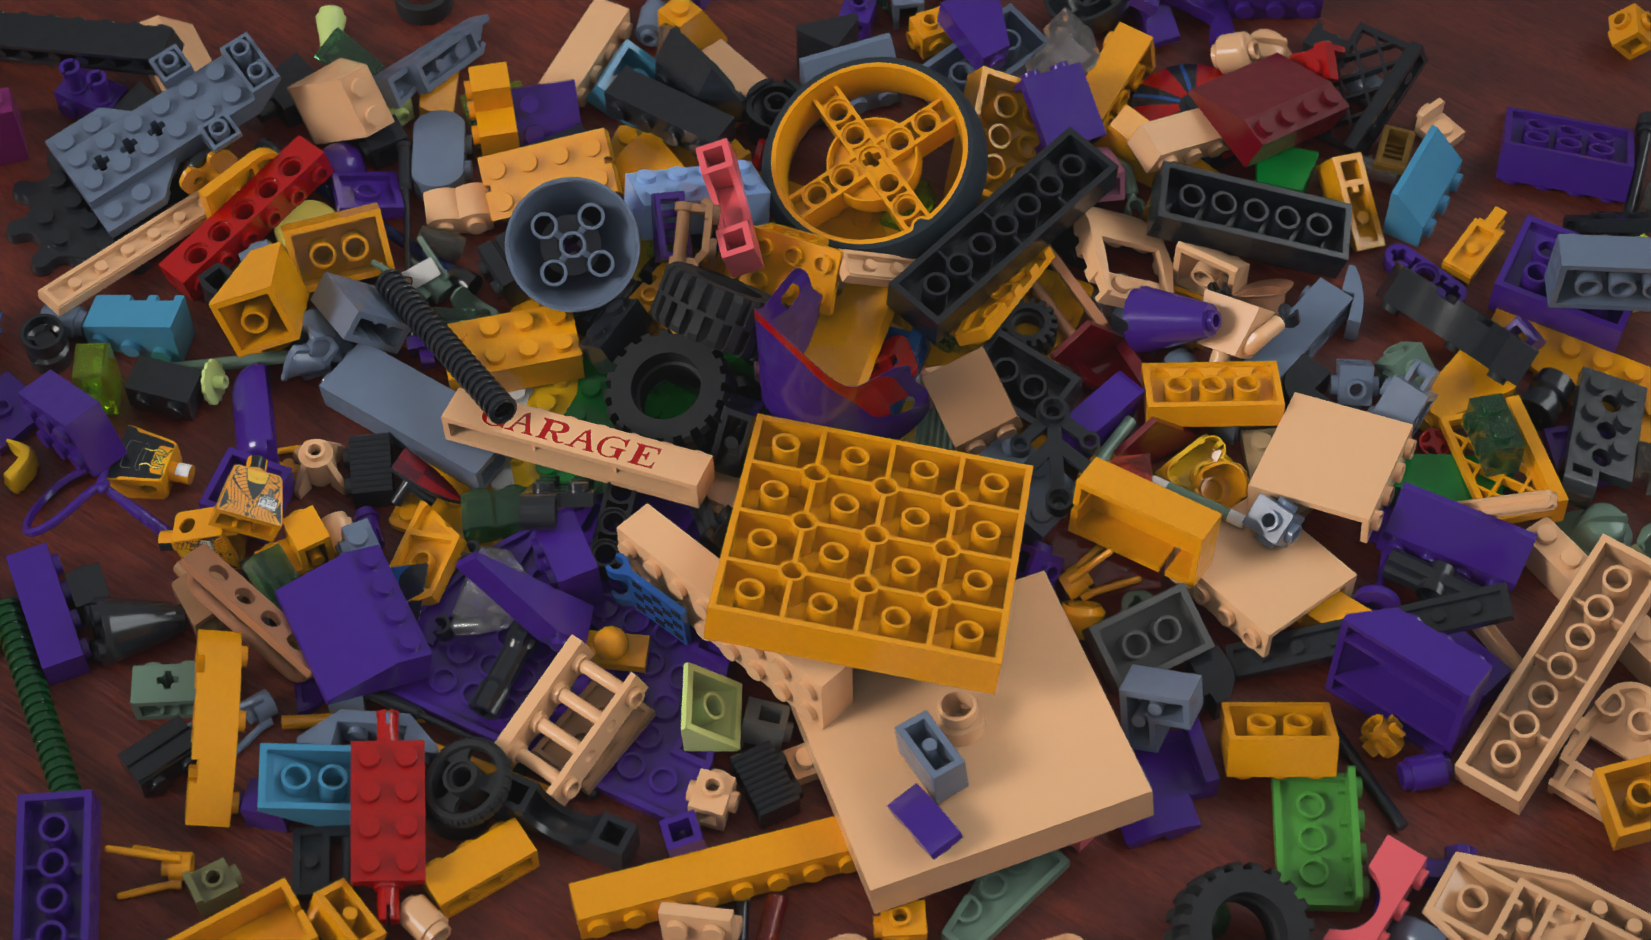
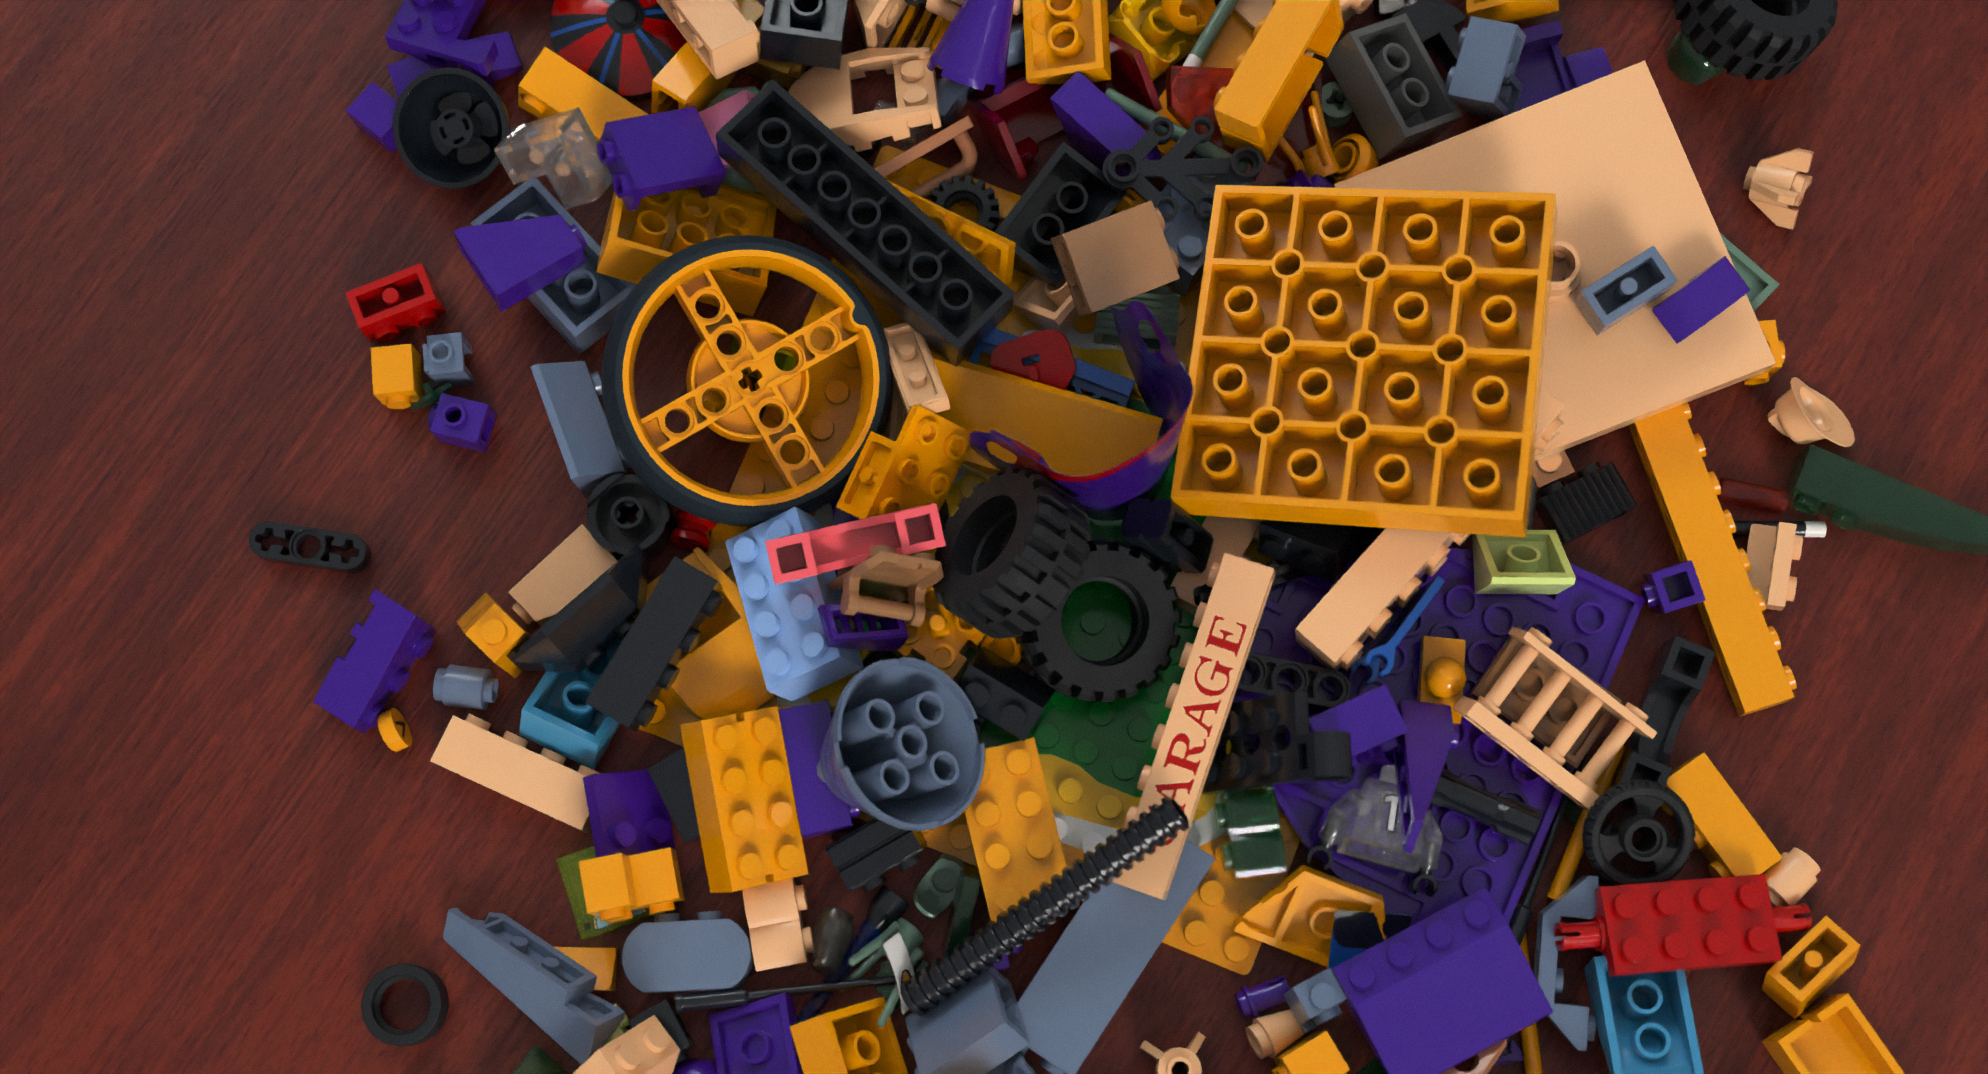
camera: 90 degrees left, 20 degrees up
(313, 858) = (1730, 1017): black plate -> none
(369, 465) = (1182, 1001): black brick -> none
(420, 481) = (1208, 929): shield -> none
(713, 797) = (1614, 559): light nougat brick -> none
(826, 35) = (531, 453): black slope -> none
(927, 34) = (496, 331): light orange brick -> none

